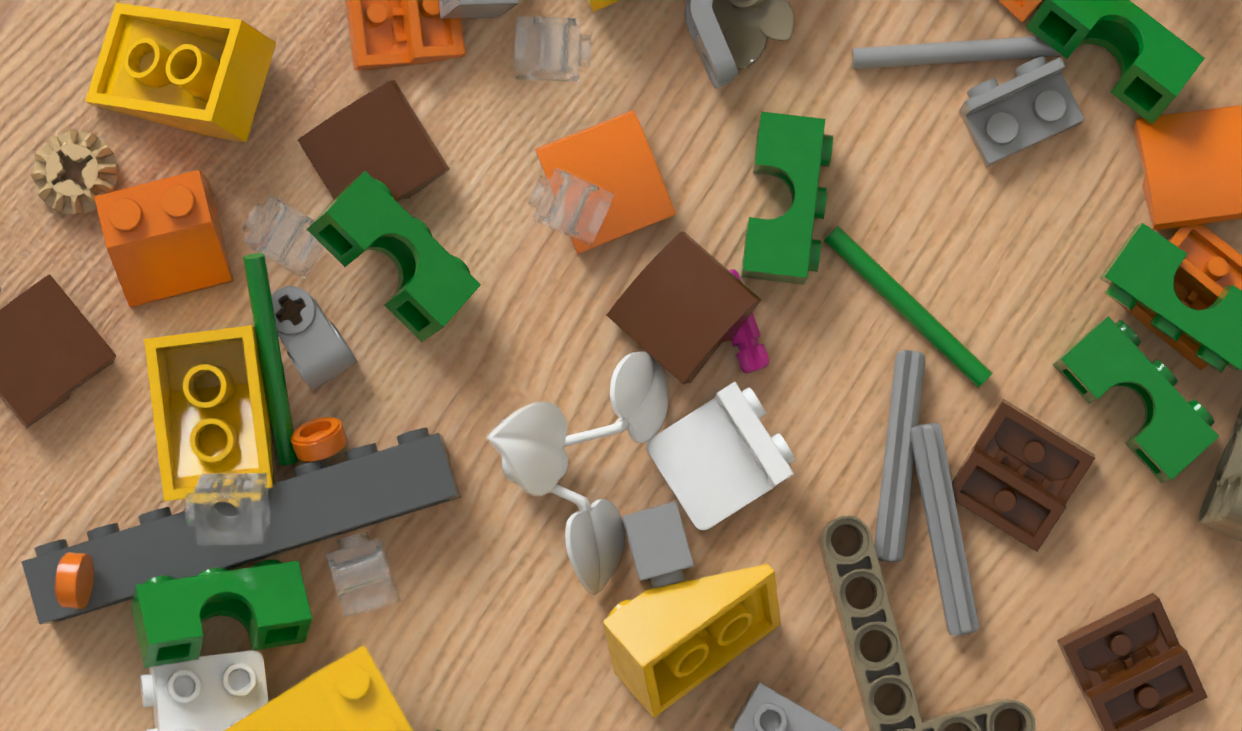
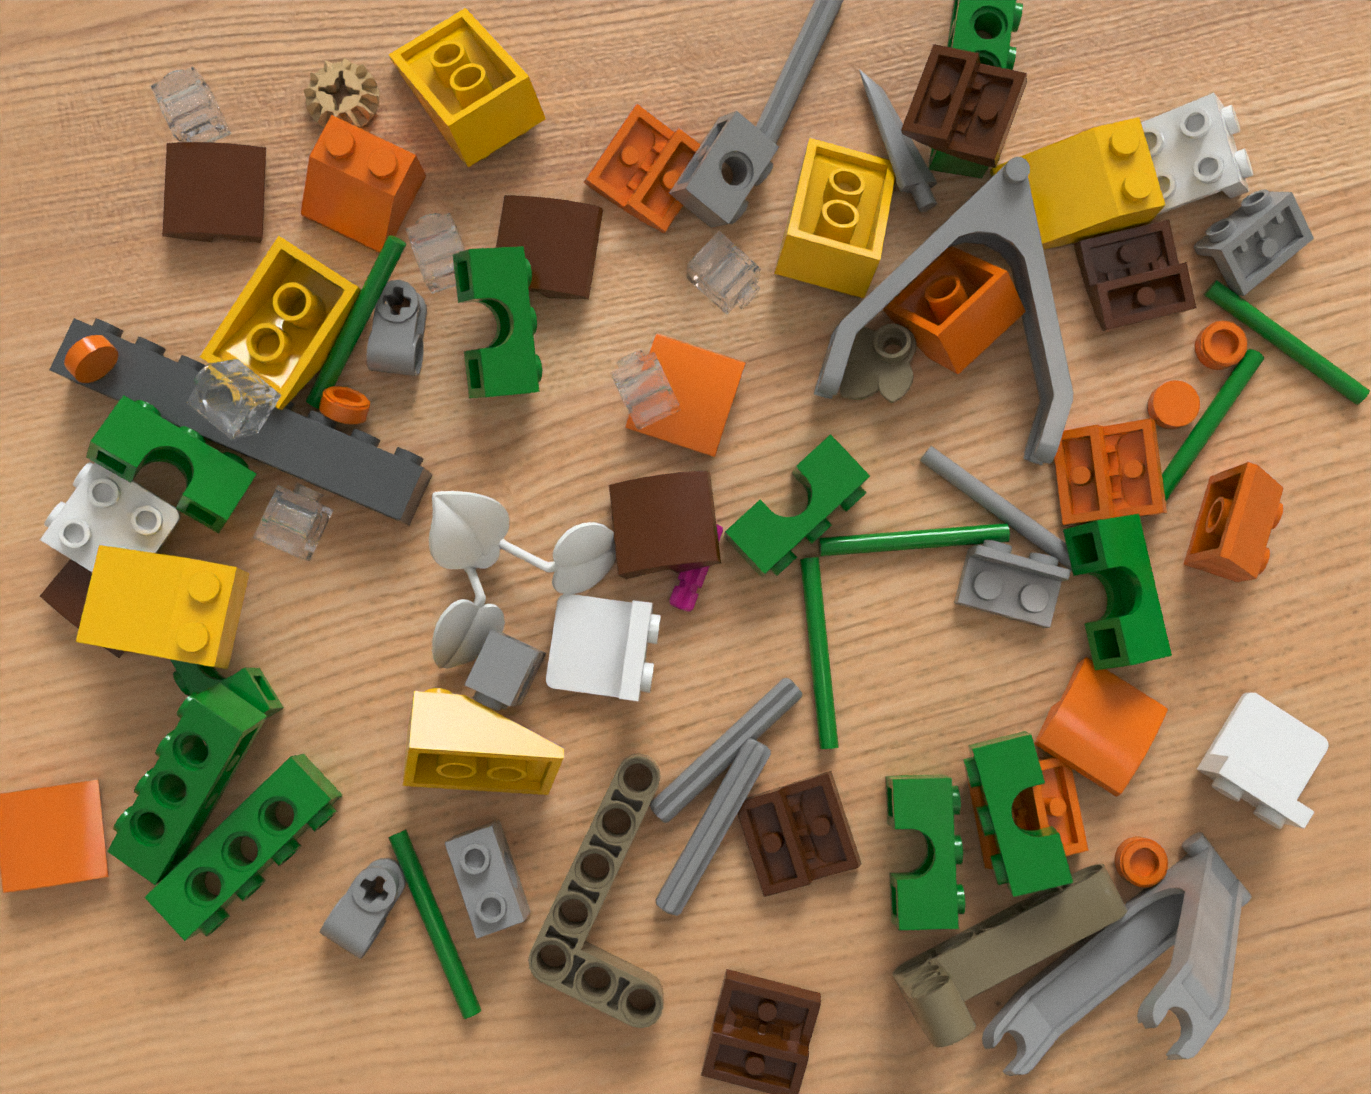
camera: 35 degrees right, 0 degrees up
(905, 142) = (913, 539): none -> green bar

